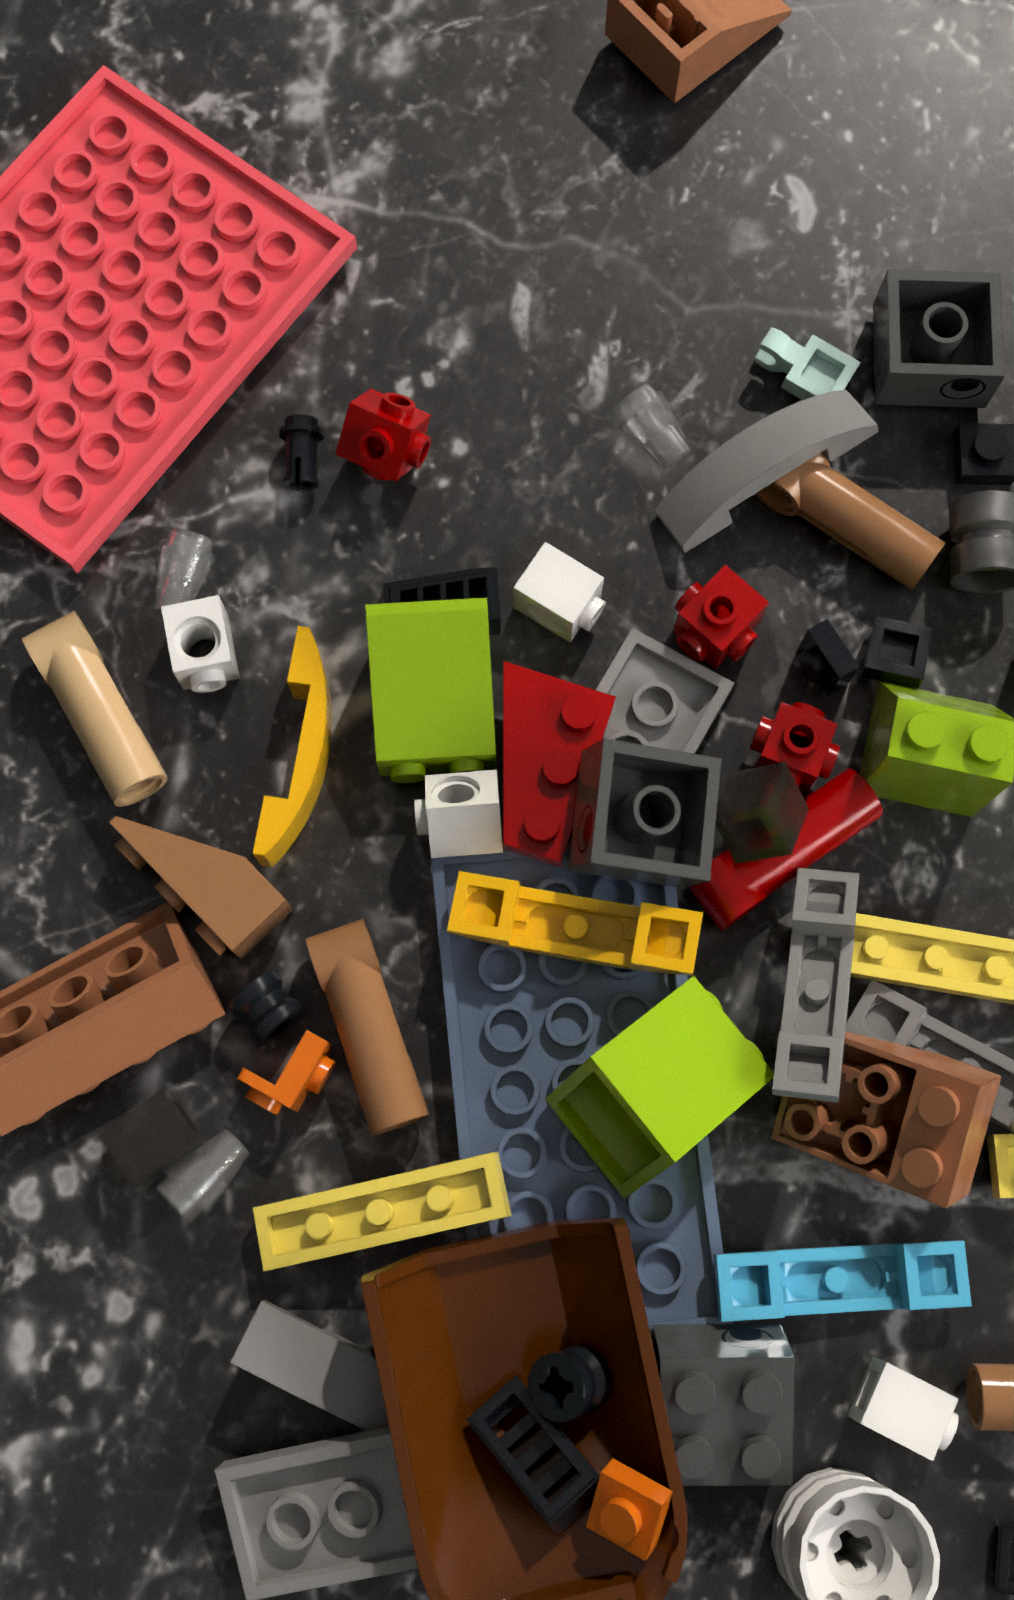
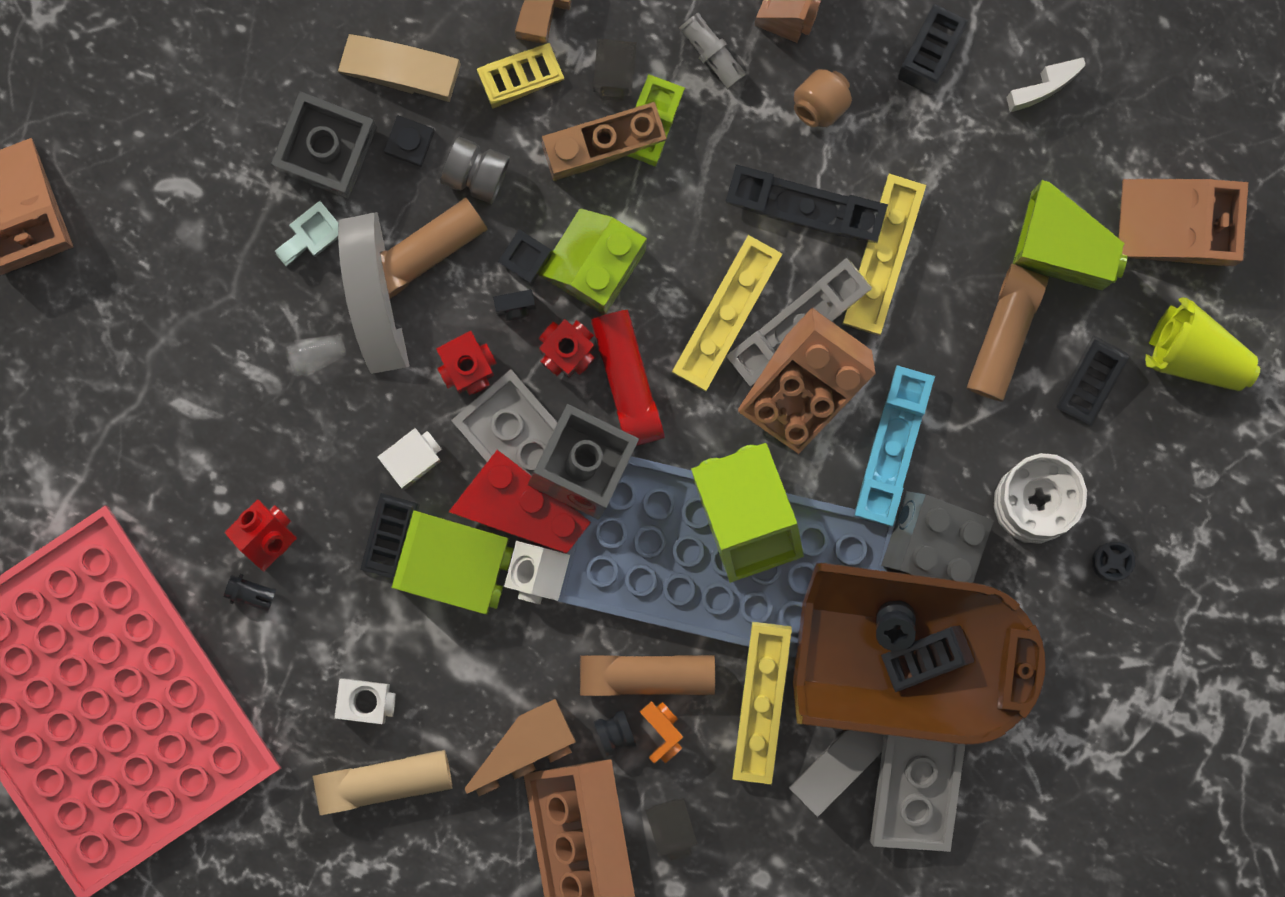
camera: 75 degrees left, 10 degrees up
(182, 566) = (306, 698): clear cone -> none
(202, 1175) = (702, 803): clear cone -> none
(284, 818) = (498, 685): yellow slope -> none
(575, 926) = (633, 527): yellow slope -> none
(629, 1509) = (973, 616): orange plate -> none
(761, 812) = (604, 389): clear smoke brick -> none
(817, 986) = (720, 395): light grey slope -> none
(905, 1409) = (977, 437): white brick -> none

